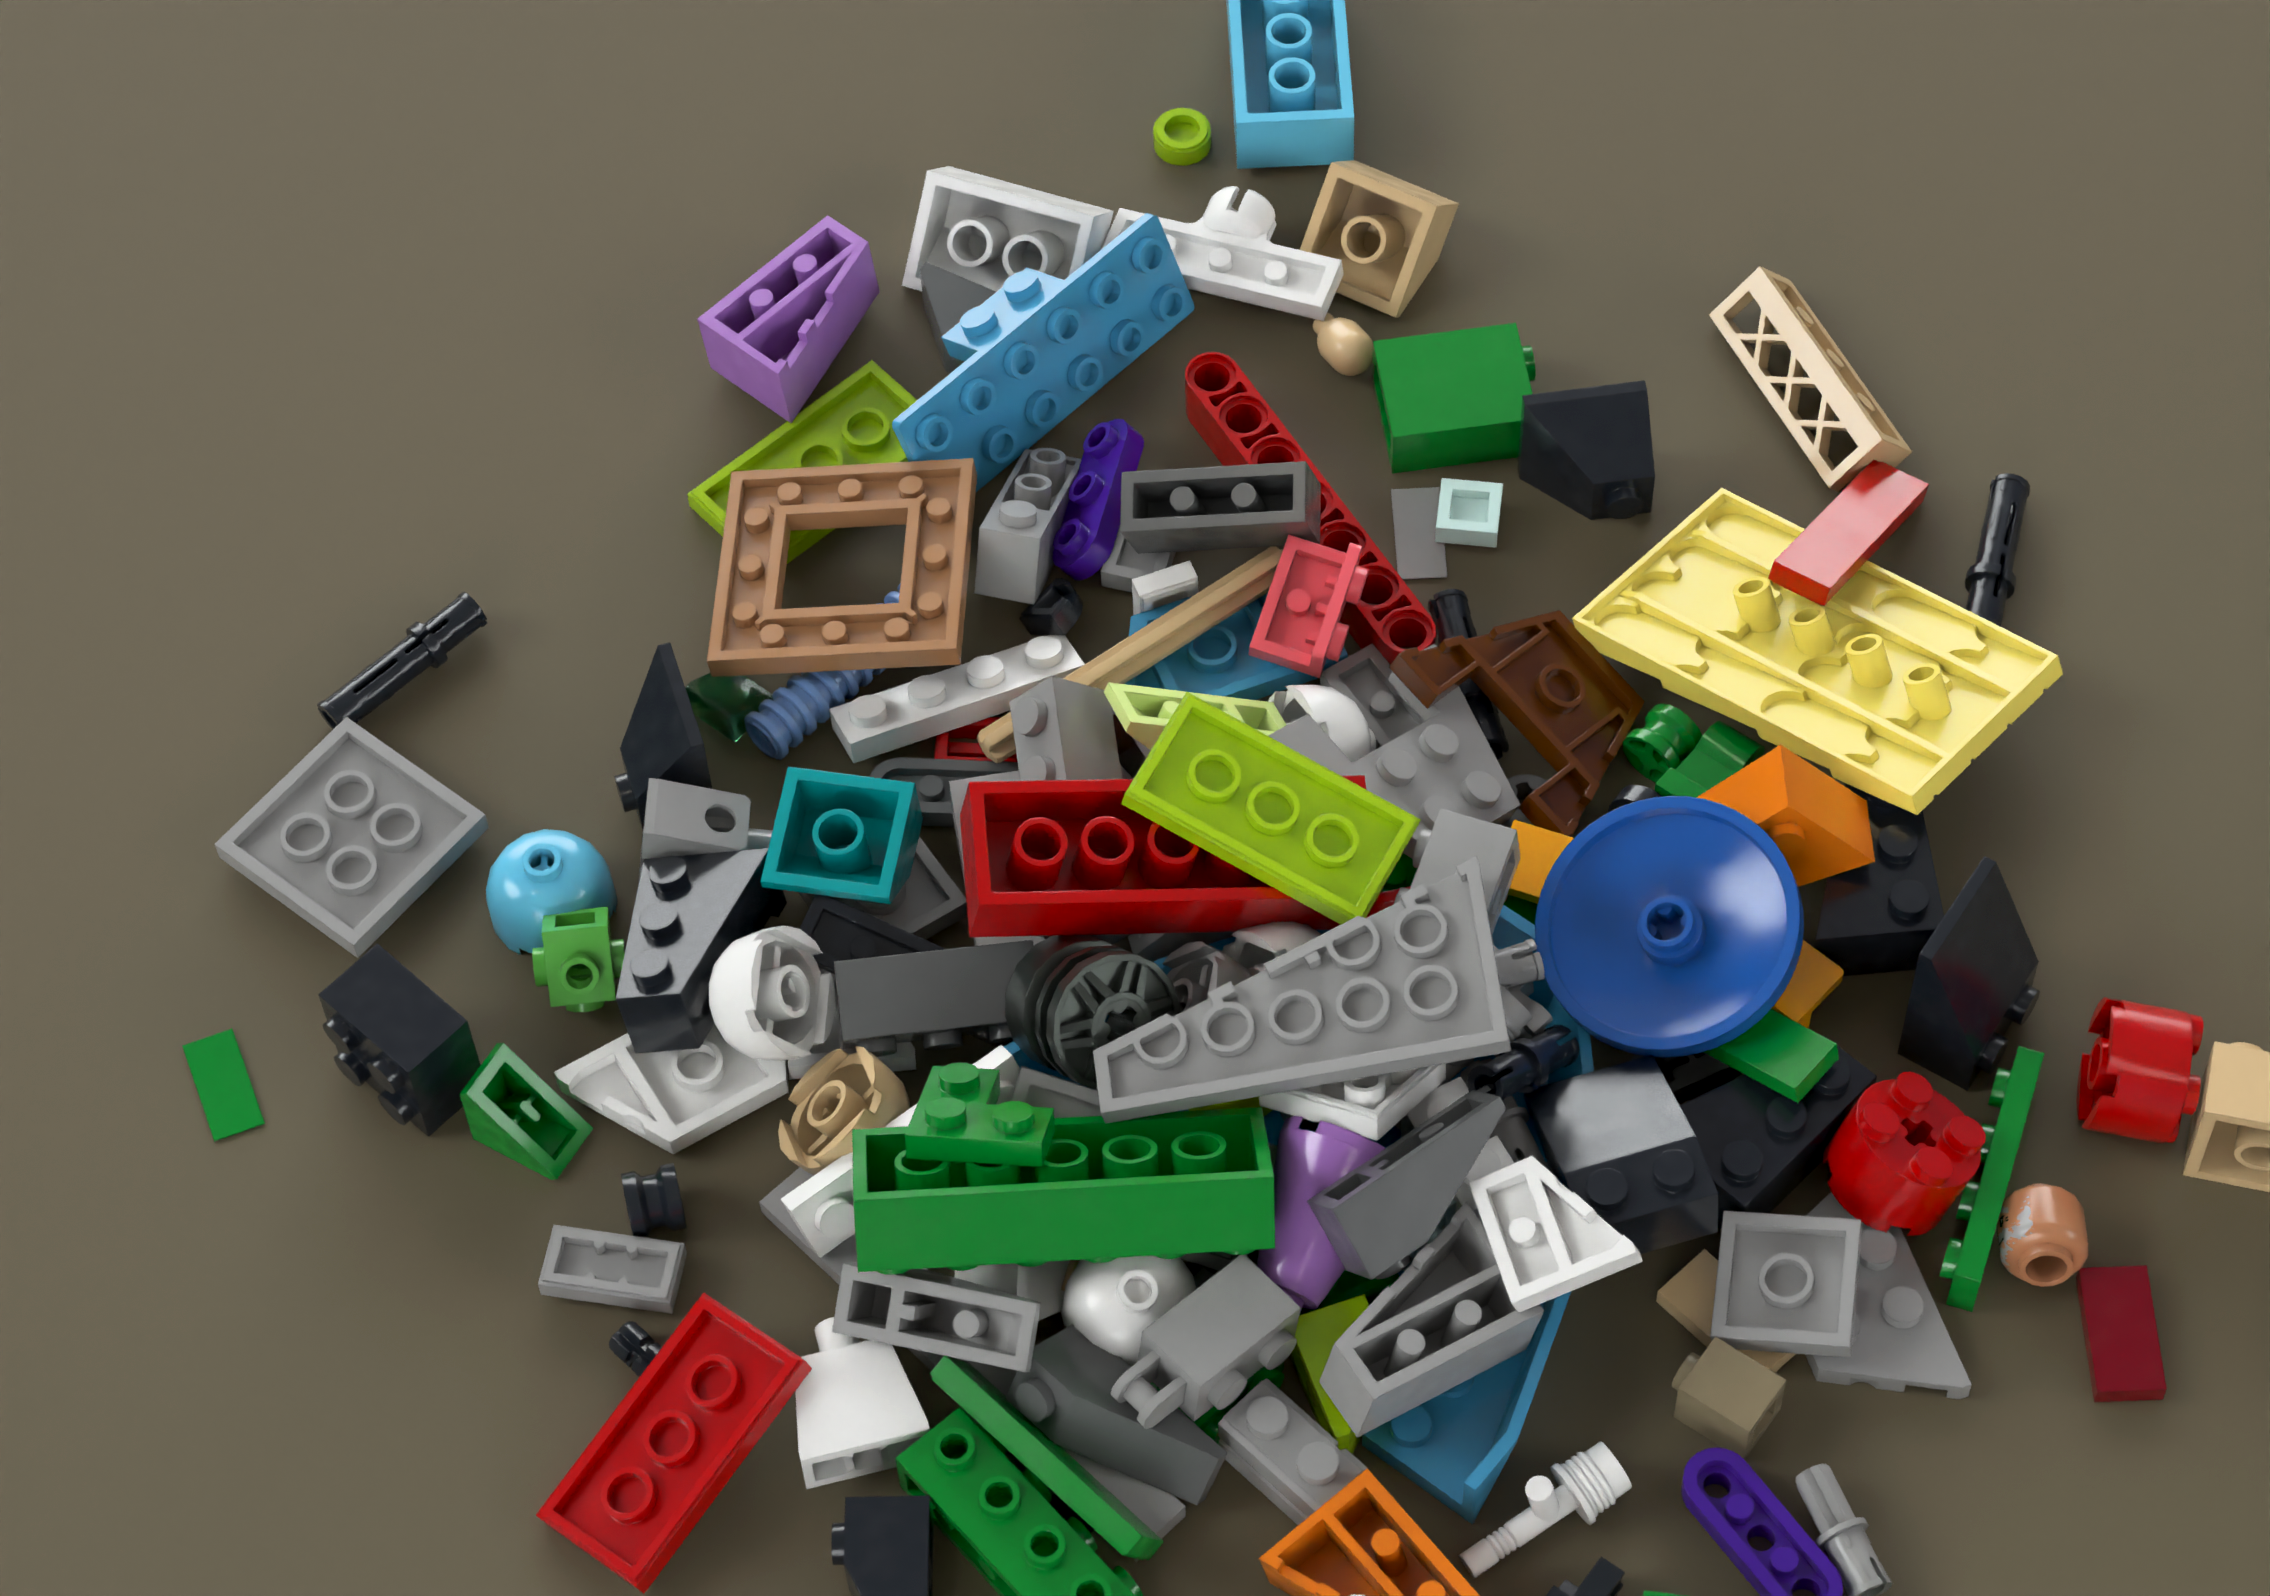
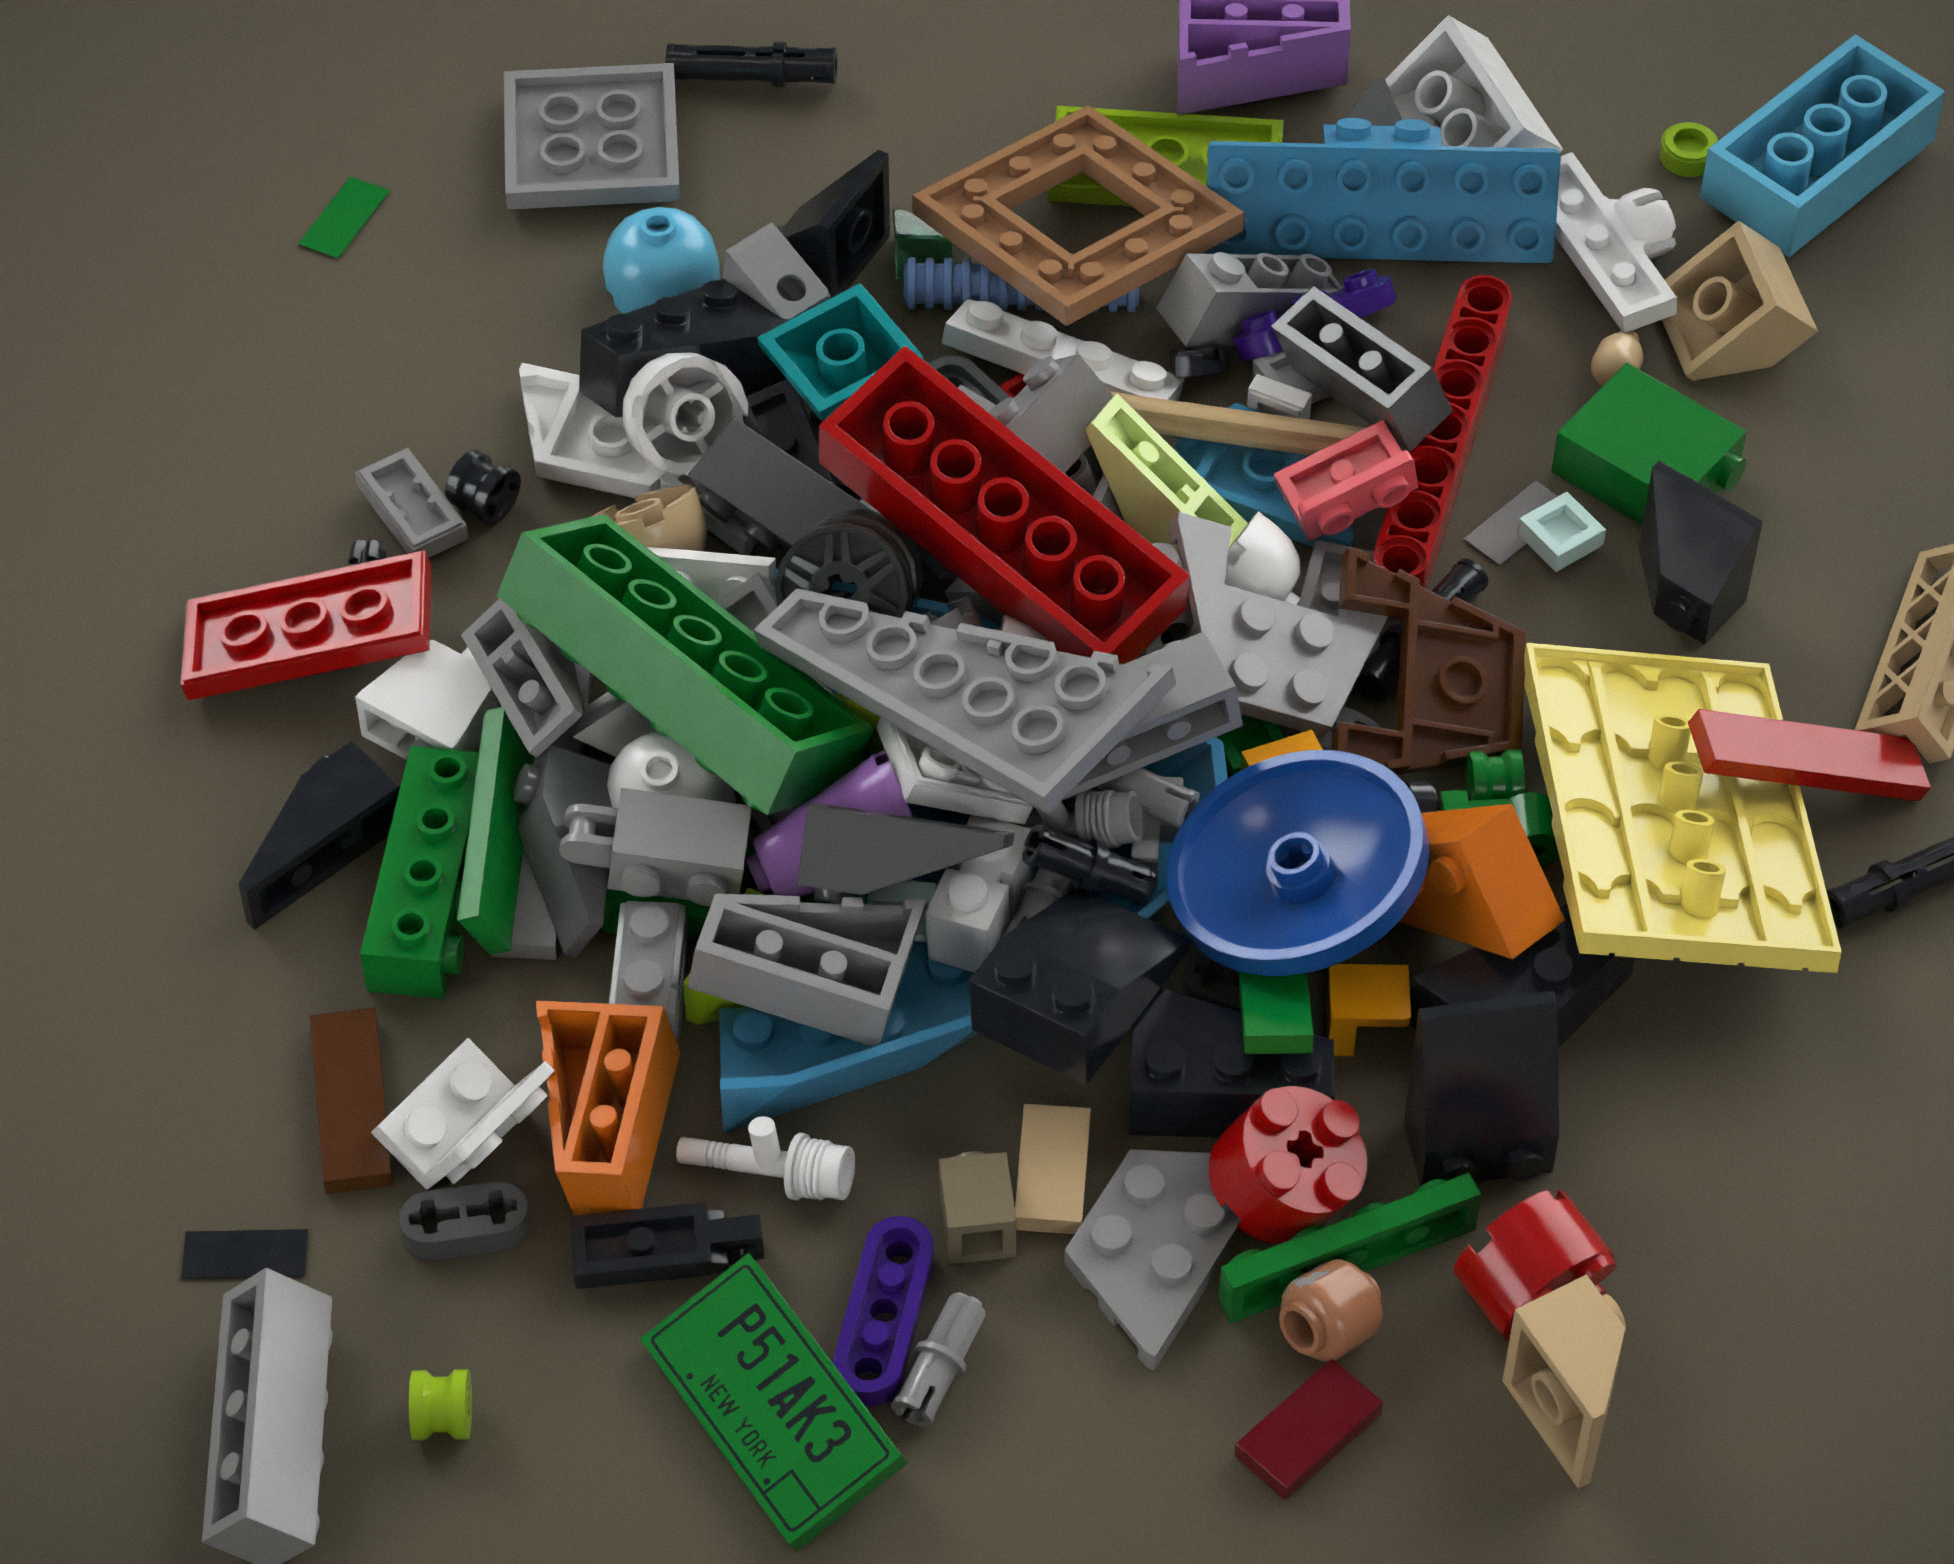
camera: 45 degrees right, 5 degrees down
(399, 1040) = (448, 262): black brick -> none
(522, 1114) = (472, 367): green slope -> none
(578, 959) = (612, 291): bright green brick -> none
(963, 1122) = (675, 568): green plate -> none
(1270, 811) = (1089, 536): lime tile -> none
(1545, 1234) = (937, 956): white wing -> none
(1787, 1283) = (1100, 1167): light grey plate -> none

